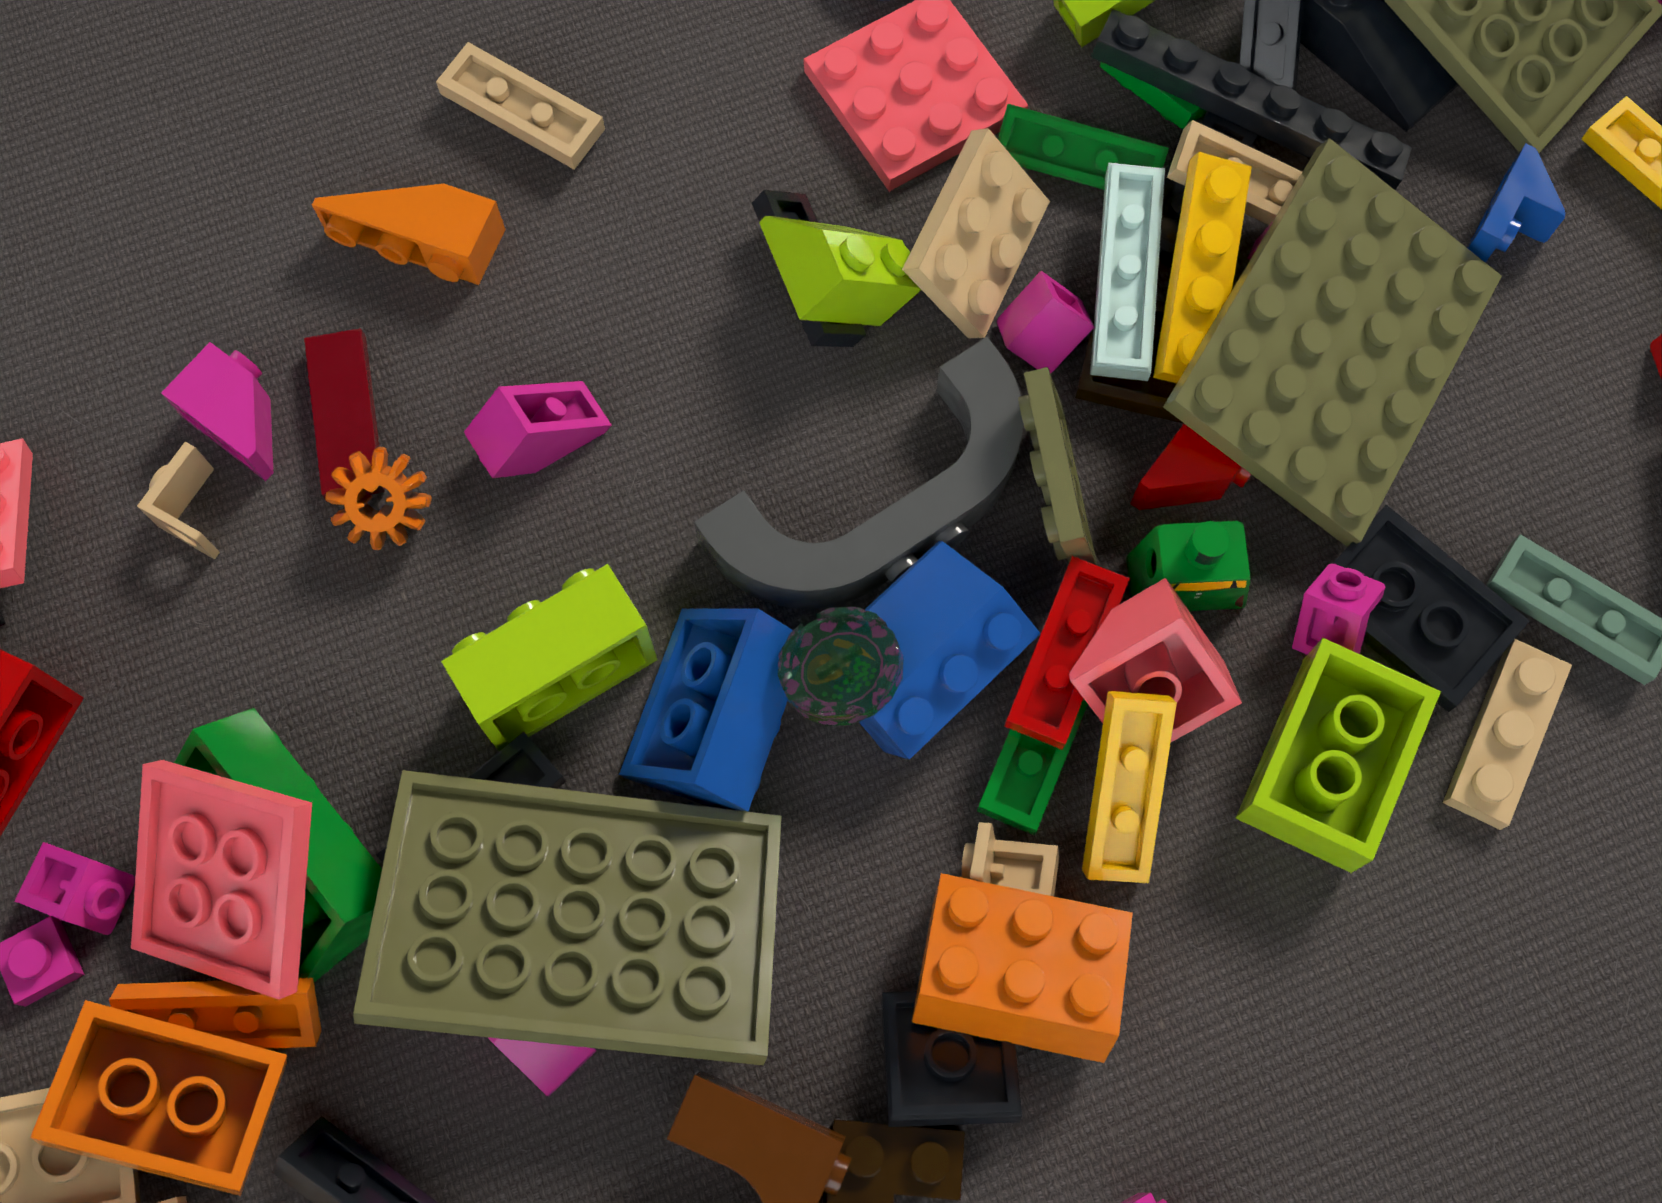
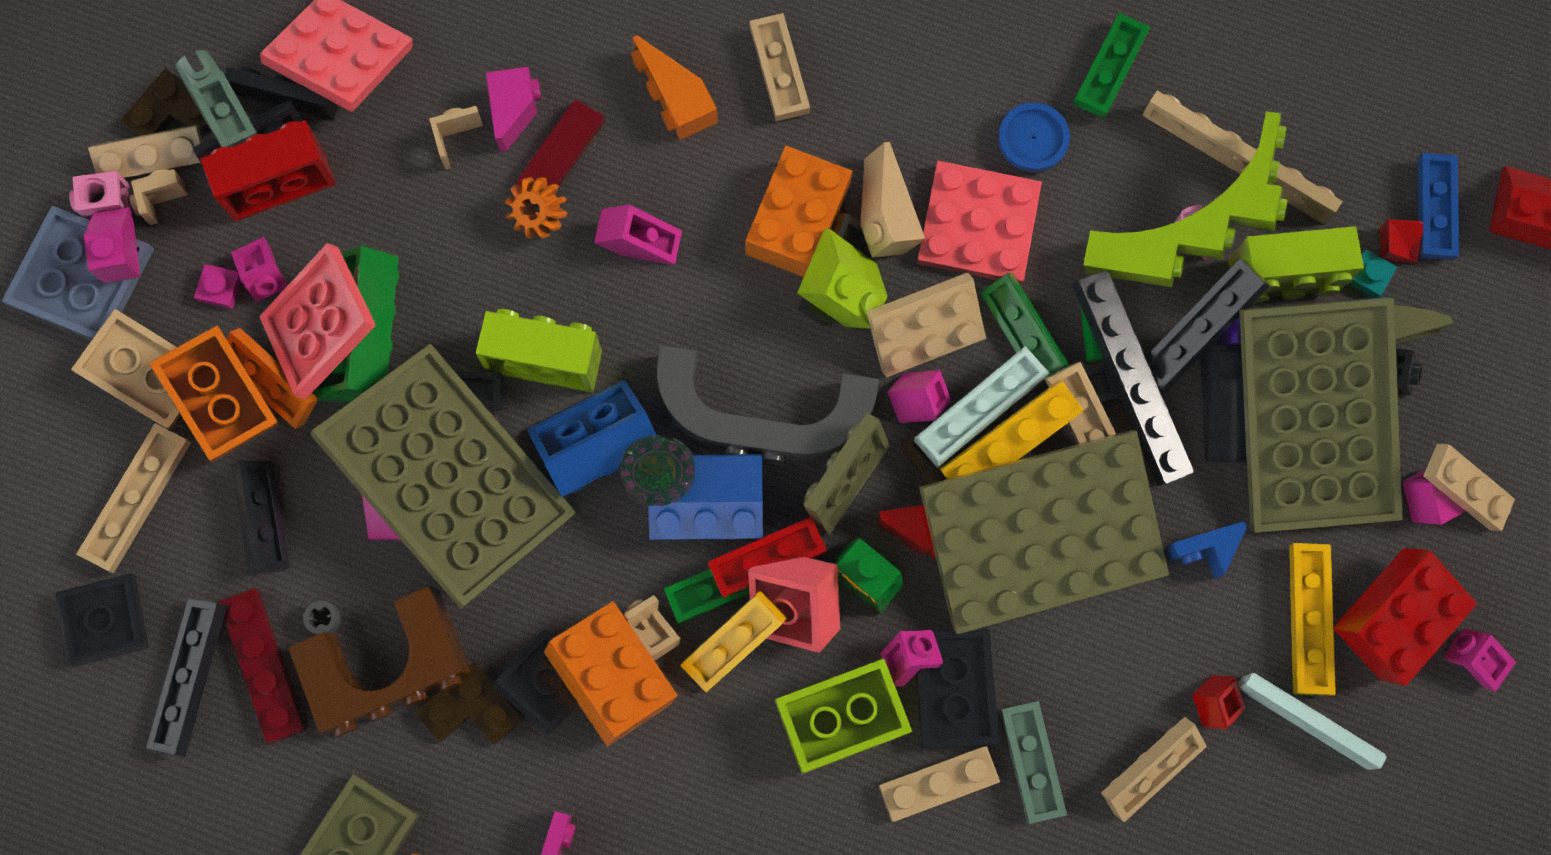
camera: 40 degrees right, 5 degrees up
(704, 239) = (796, 210): none -> orange brick
(798, 148) = (886, 207): none -> tan slope

